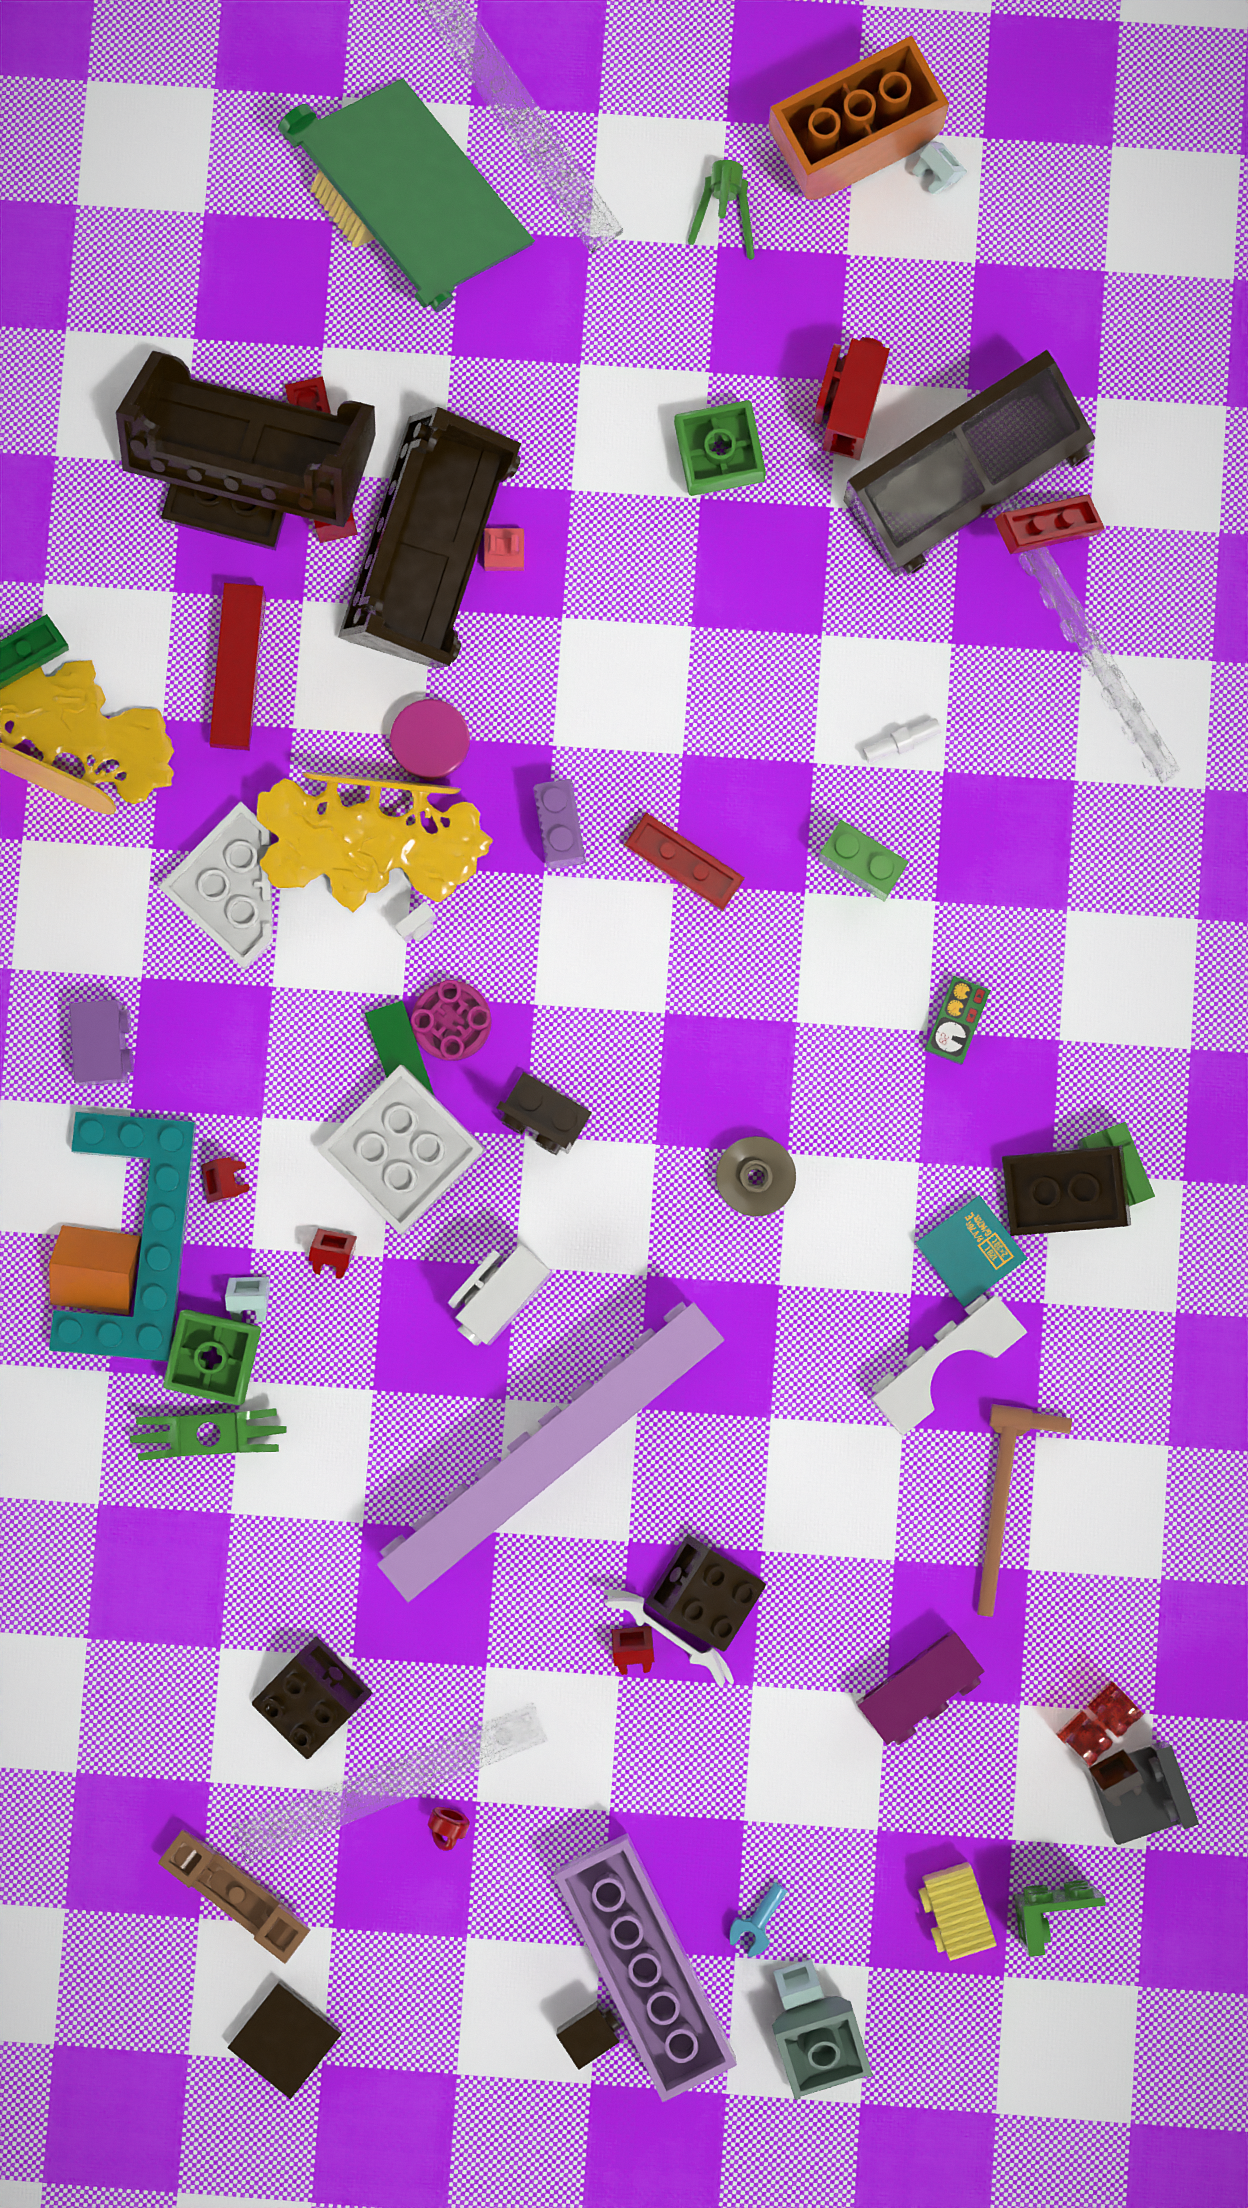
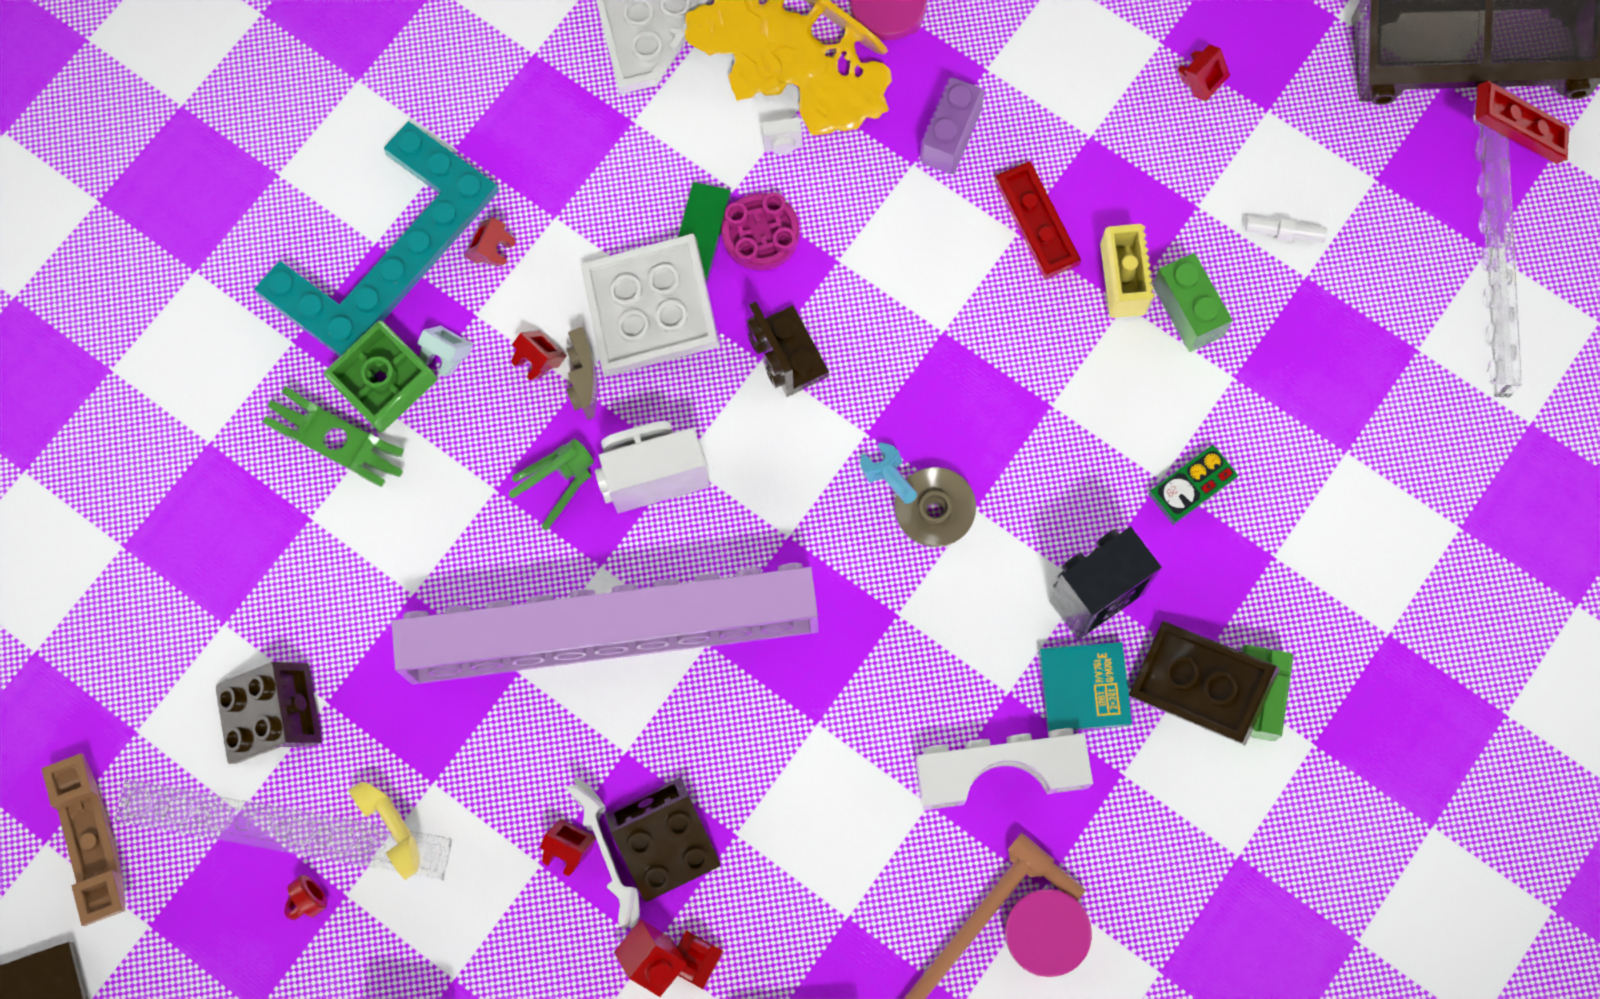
camera: 30 degrees right, 10 degrees down
(94, 1270) = (333, 251): orange slope -> none
(100, 1042) = (464, 78): medium lavender brick -> none
(394, 1260) = (584, 380): none -> dark tan slope
(423, 1328) = (569, 462): none -> bright green plant
(509, 1740) = (406, 852): none -> light yellow bar
(697, 1170) = (888, 471): none -> medium azure bar
(749, 637) = (1205, 72): none -> red tile
(760, 1695) = (650, 958): none -> red brick
(791, 868) = (1126, 270): none -> light yellow brick
(794, 1672) = (700, 959): none -> red tile
(939, 1163) = (1103, 582): none -> black brick
(1062, 1472) = (1048, 933): none -> dark pink tile

